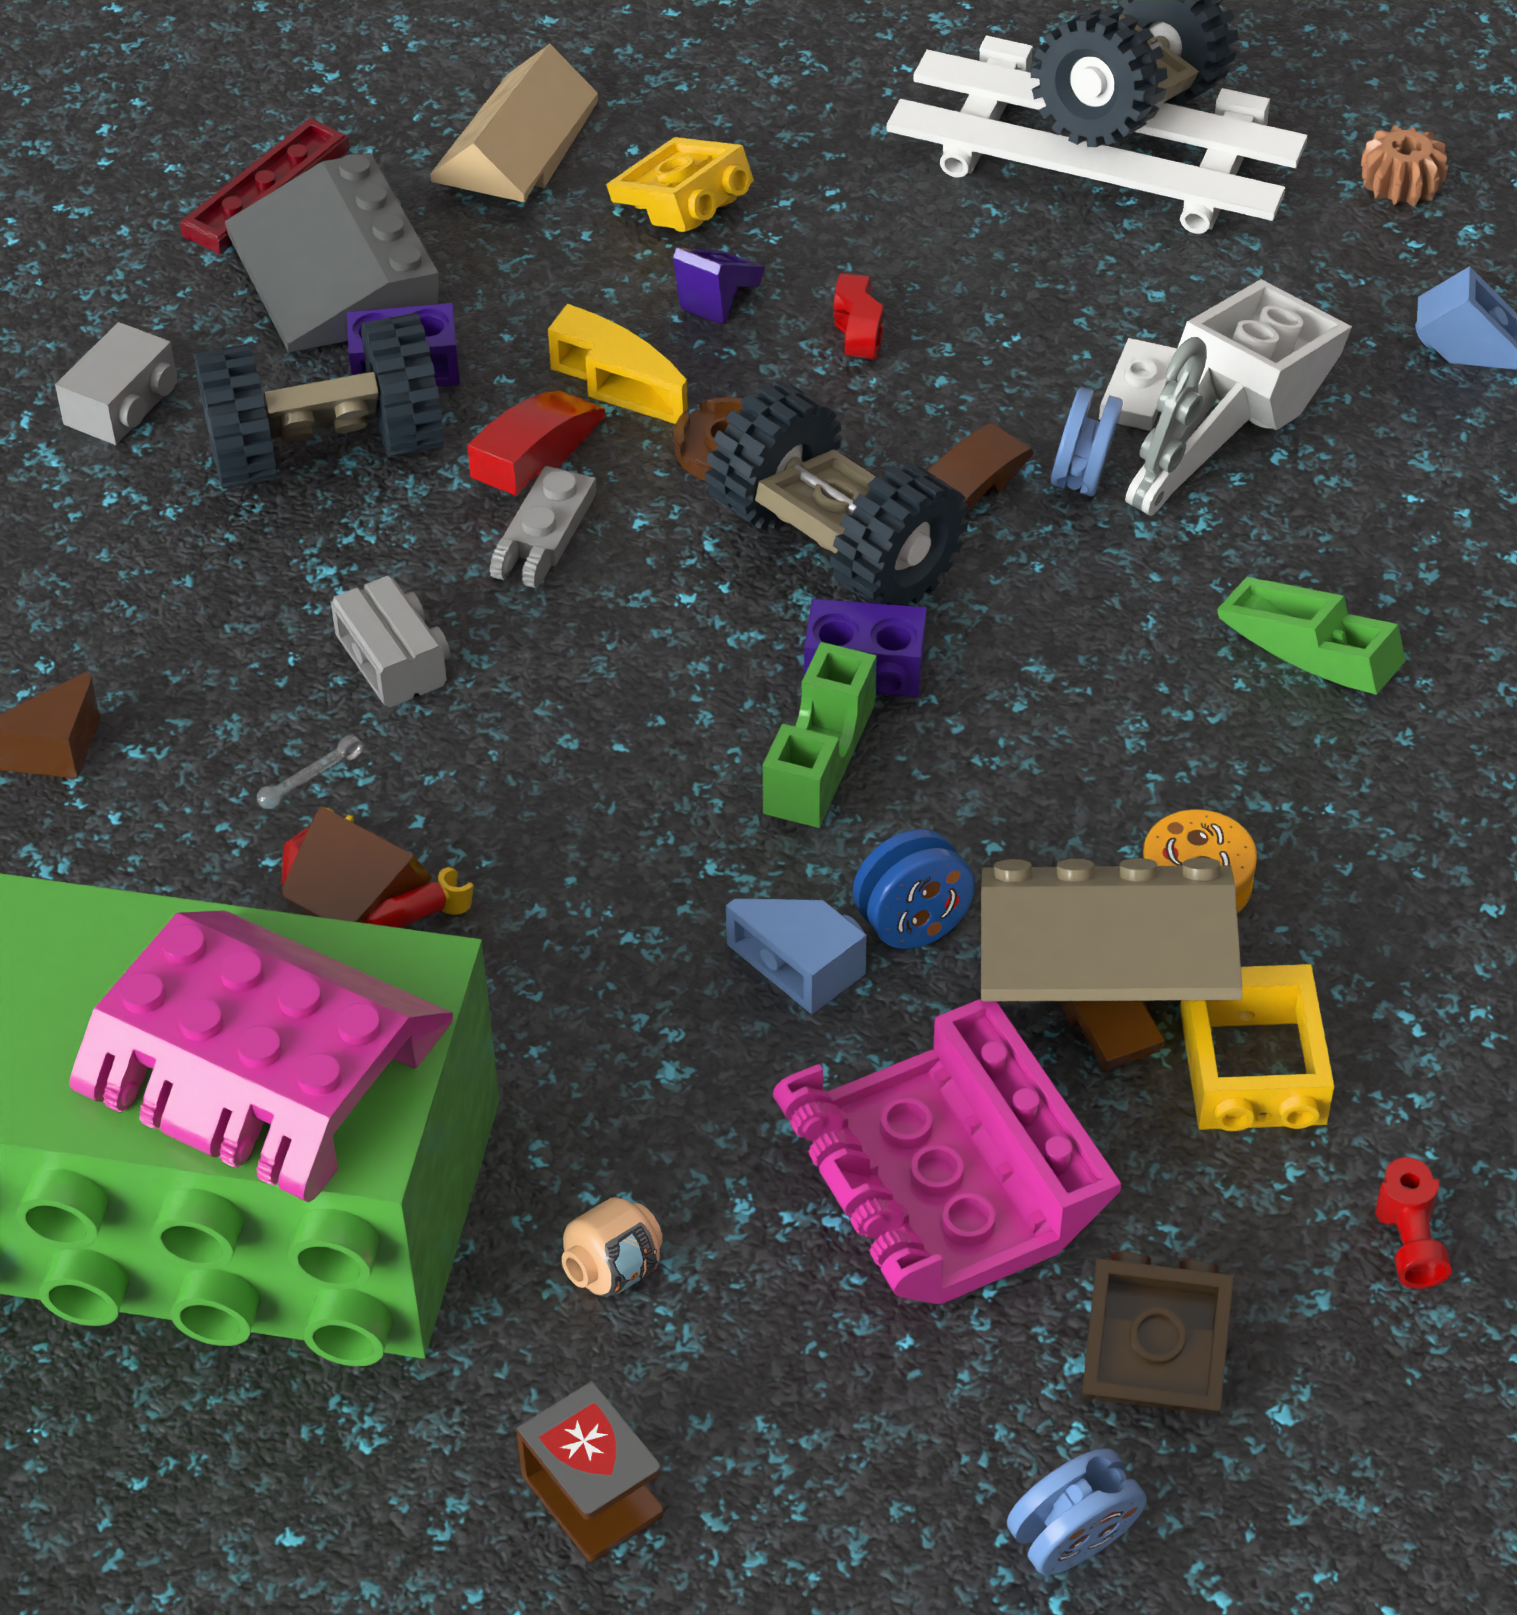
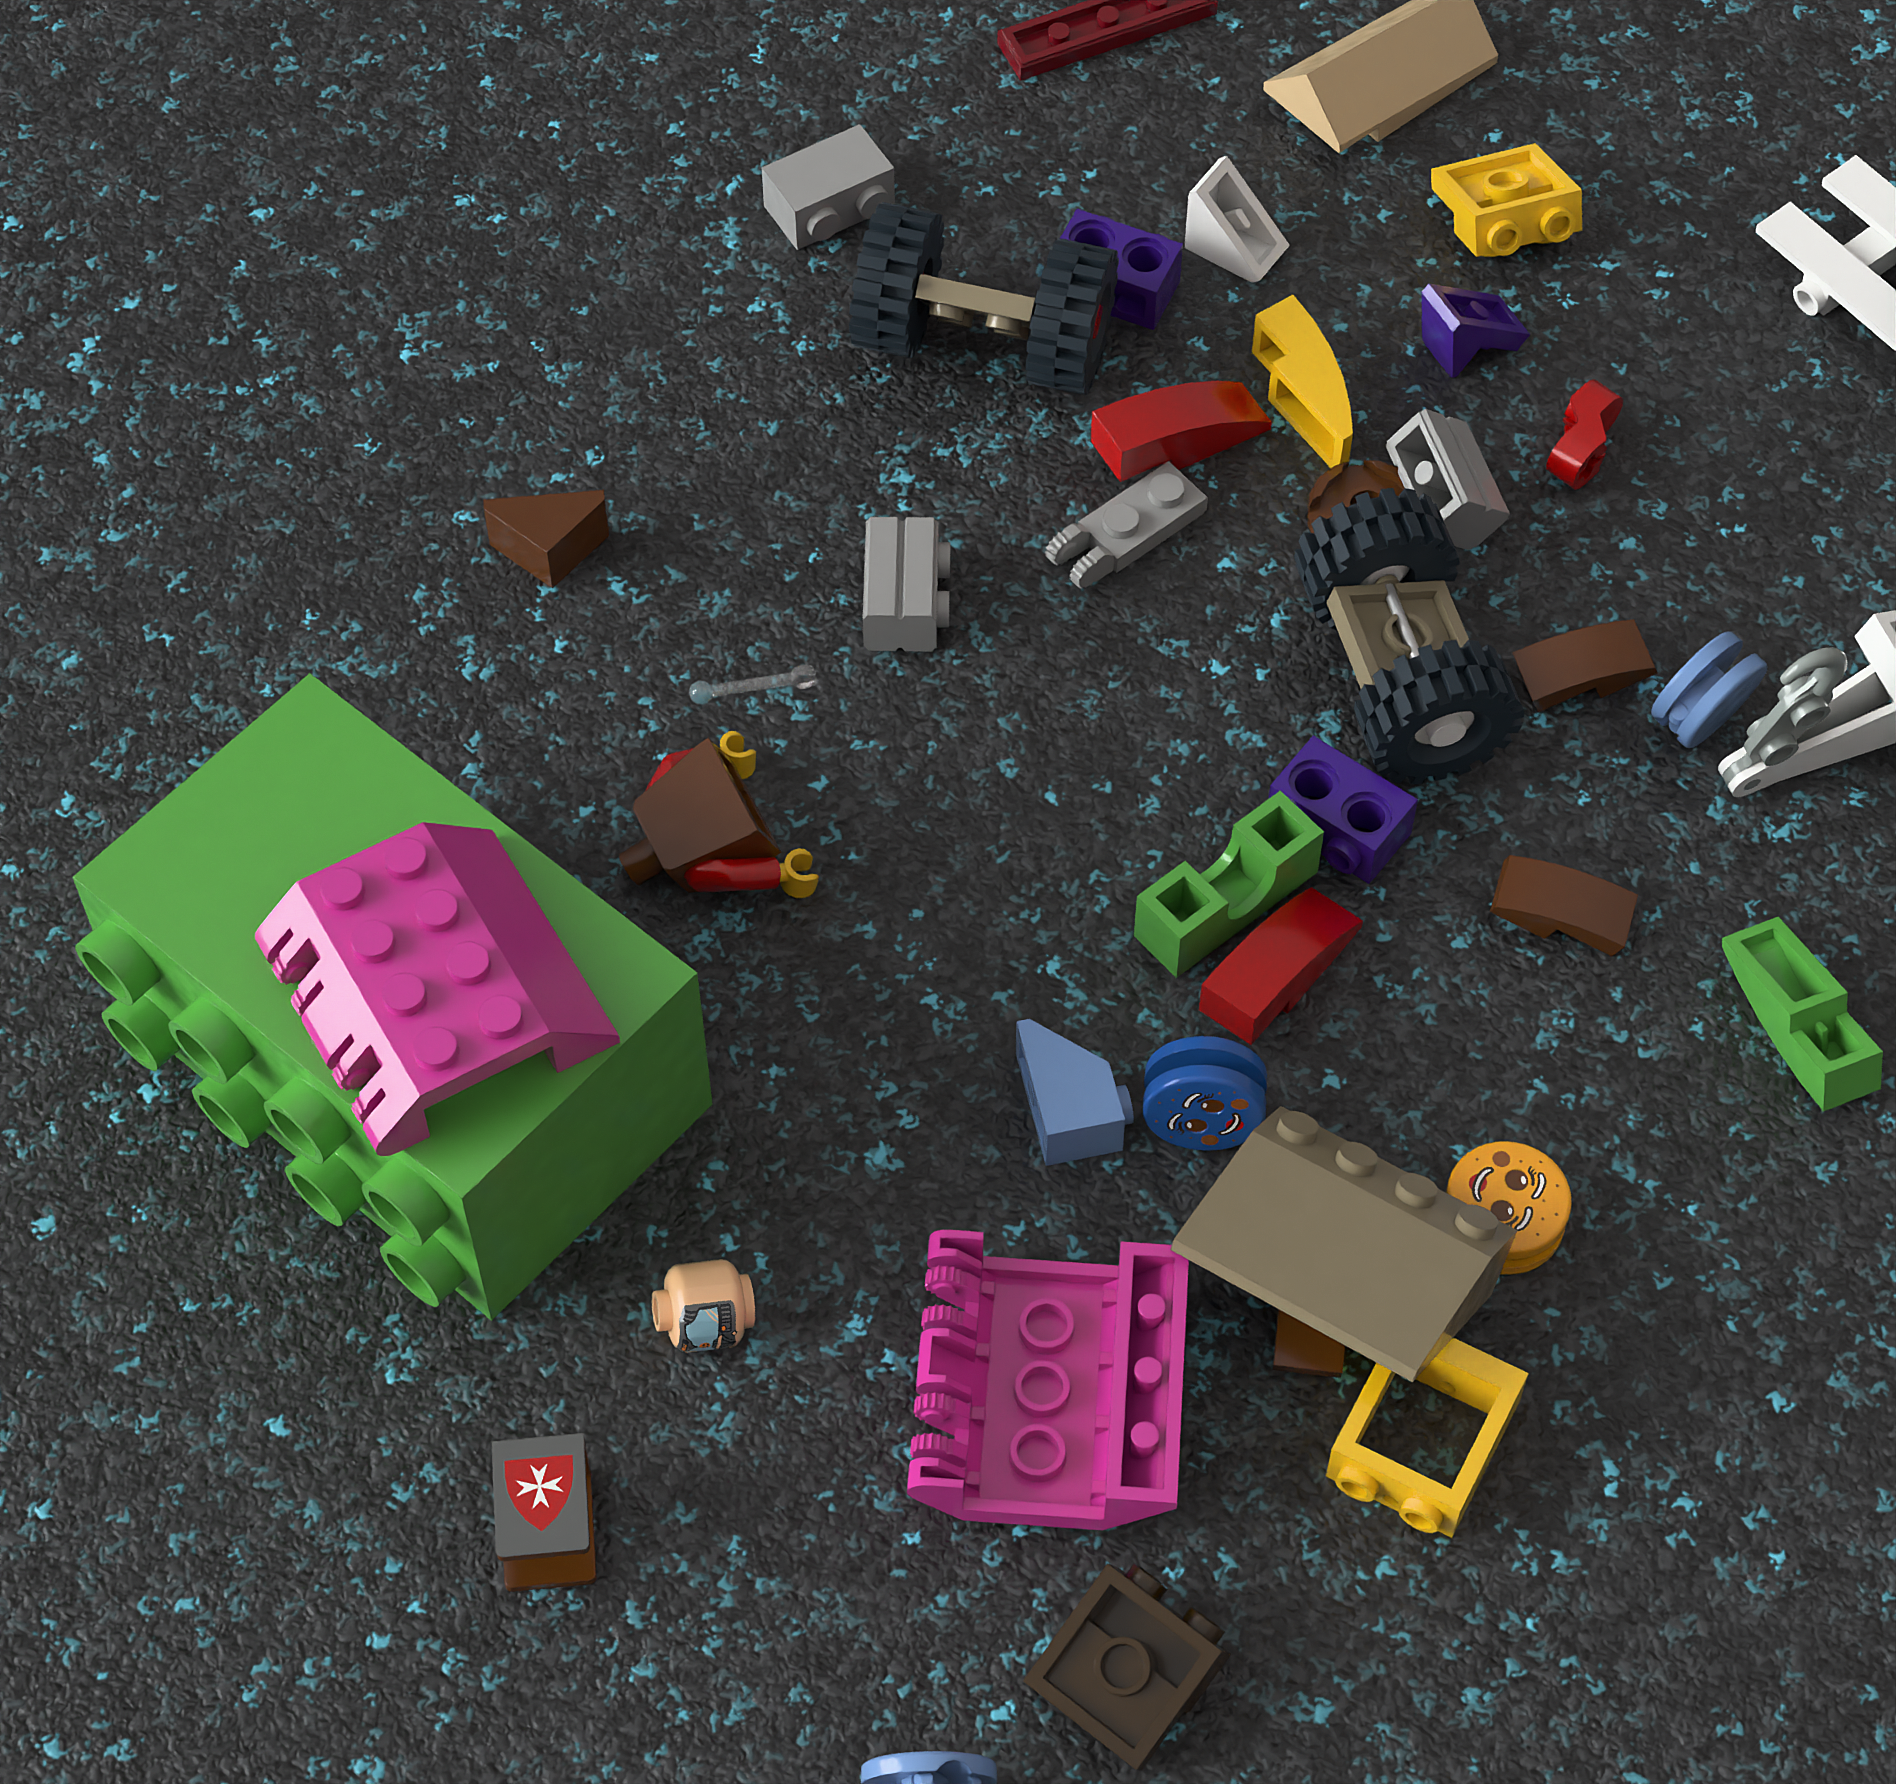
camera: 30 degrees right, 10 degrees up
(332, 248) = (1112, 131): dark grey slope -> none
(477, 280) = (1231, 224): none -> white slope
(758, 361) = (1445, 463): none -> light grey brick
(895, 778) = (1277, 964): none -> red slope
(1071, 637) = (1560, 898): none -> reddish brown slope
(1139, 382) = (1828, 626): white plate -> none
(1408, 1201) = (1462, 1665): red leg -> none

